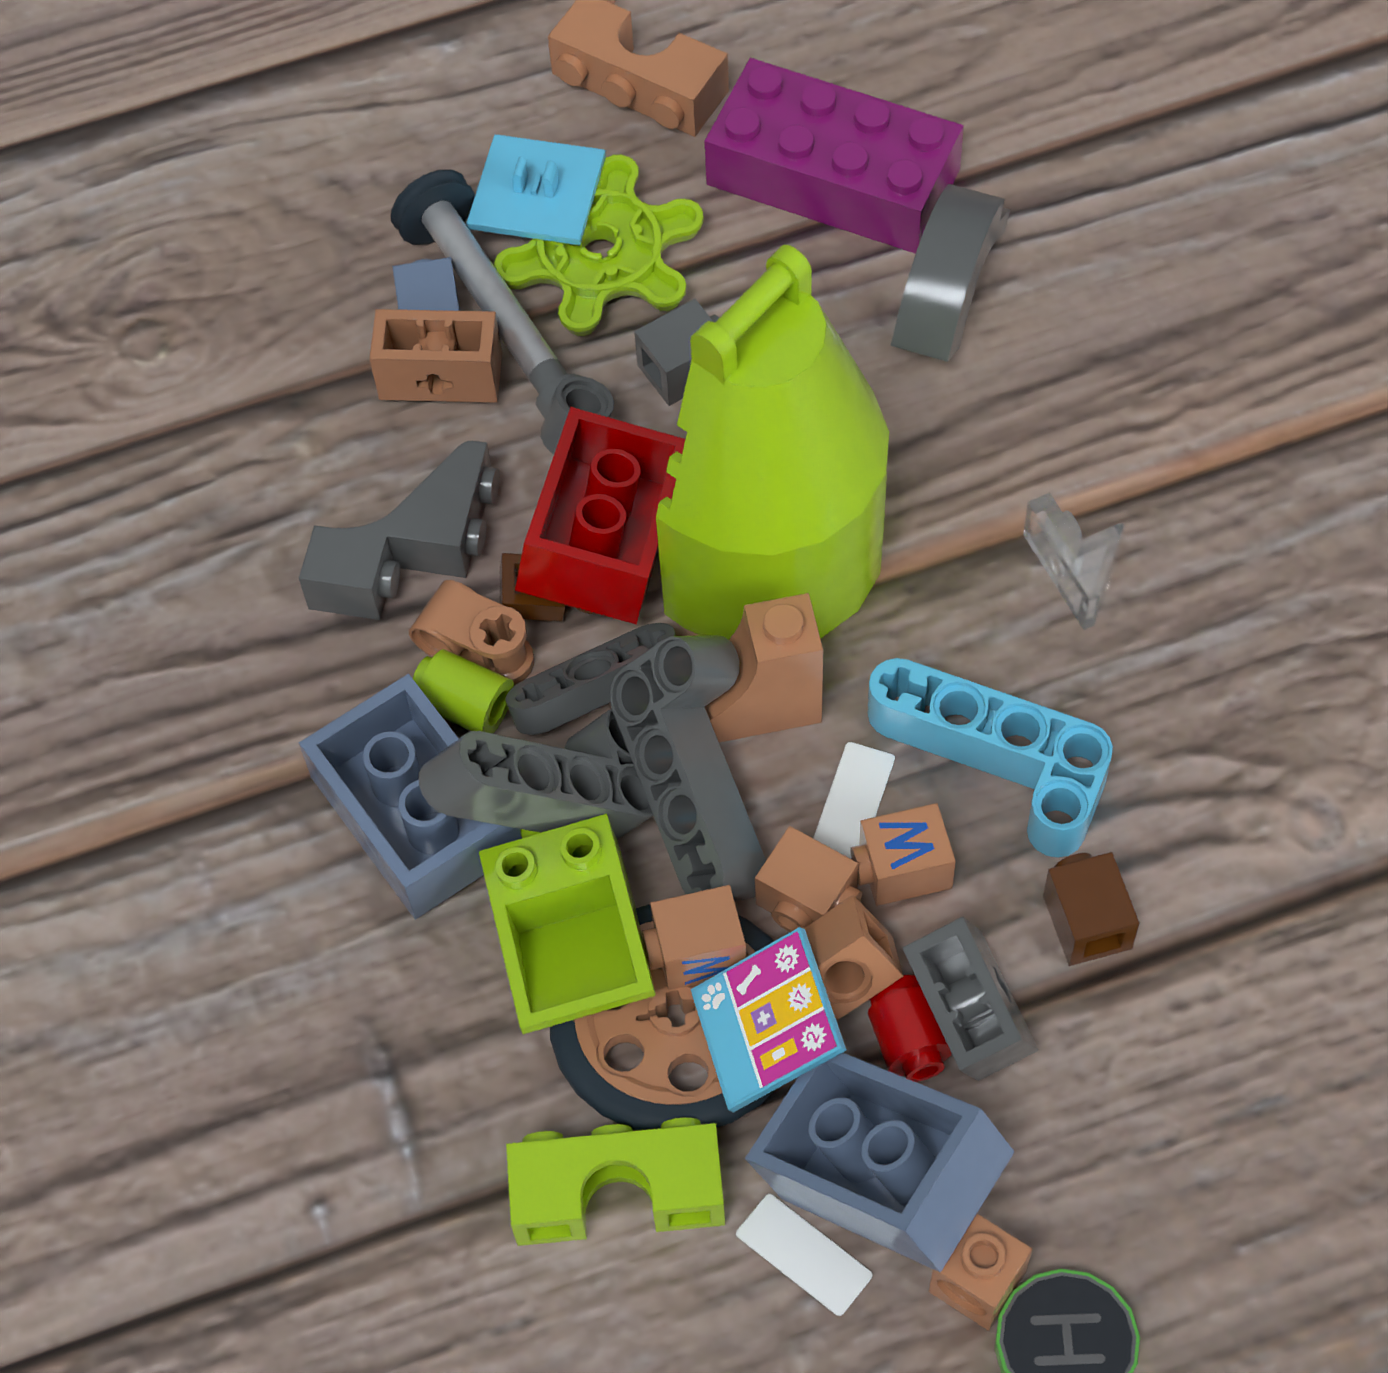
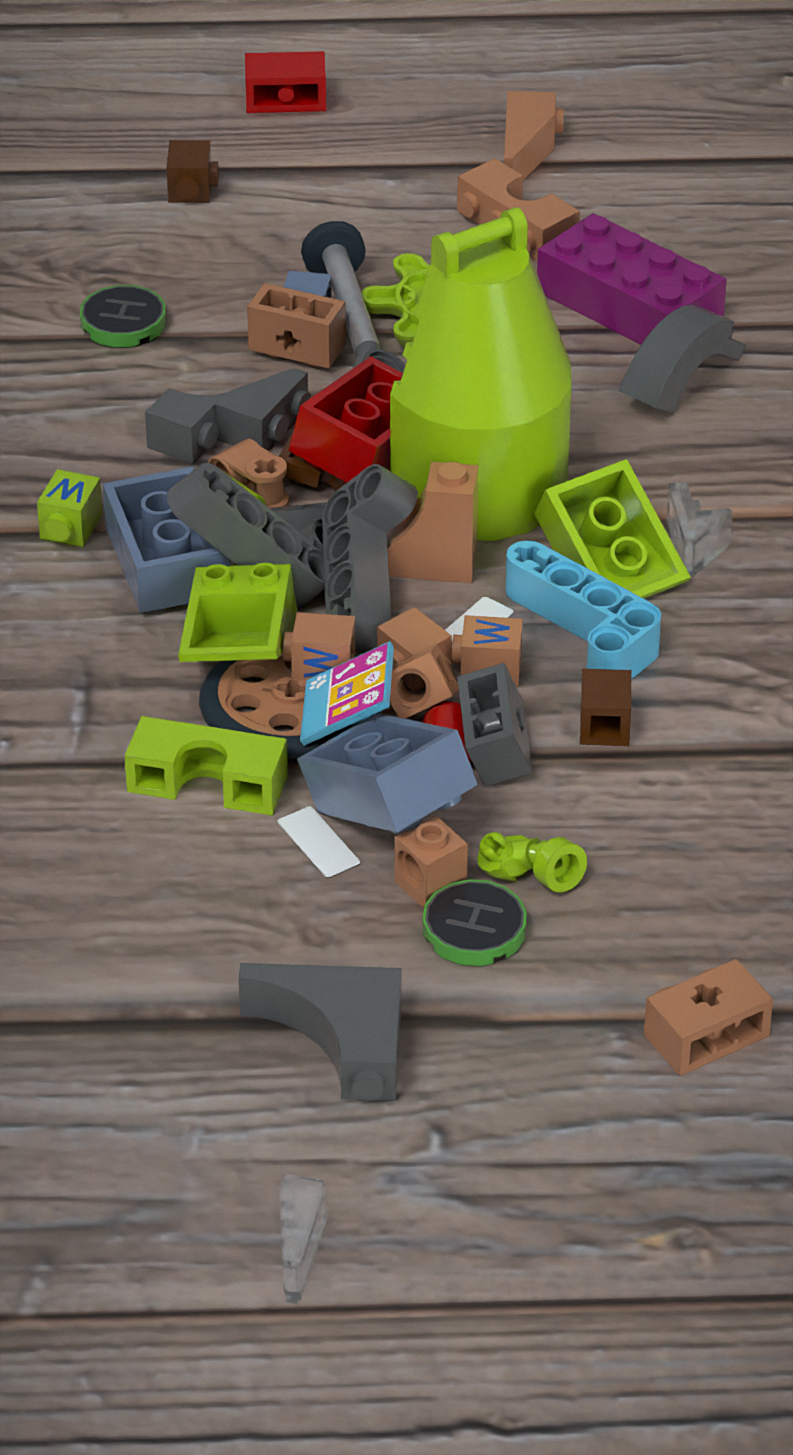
camera: 15 degrees right, 20 degrees down
(188, 112) = (190, 171): none -> reddish brown brick
(191, 388) = (123, 315): none -> tile
(255, 768) = (70, 508): none -> lime brick
(536, 189) = (398, 257): medium azure piece -> none
(983, 605) = (612, 530): none -> lime slope
(1071, 1214) = (555, 862): none -> lime arm

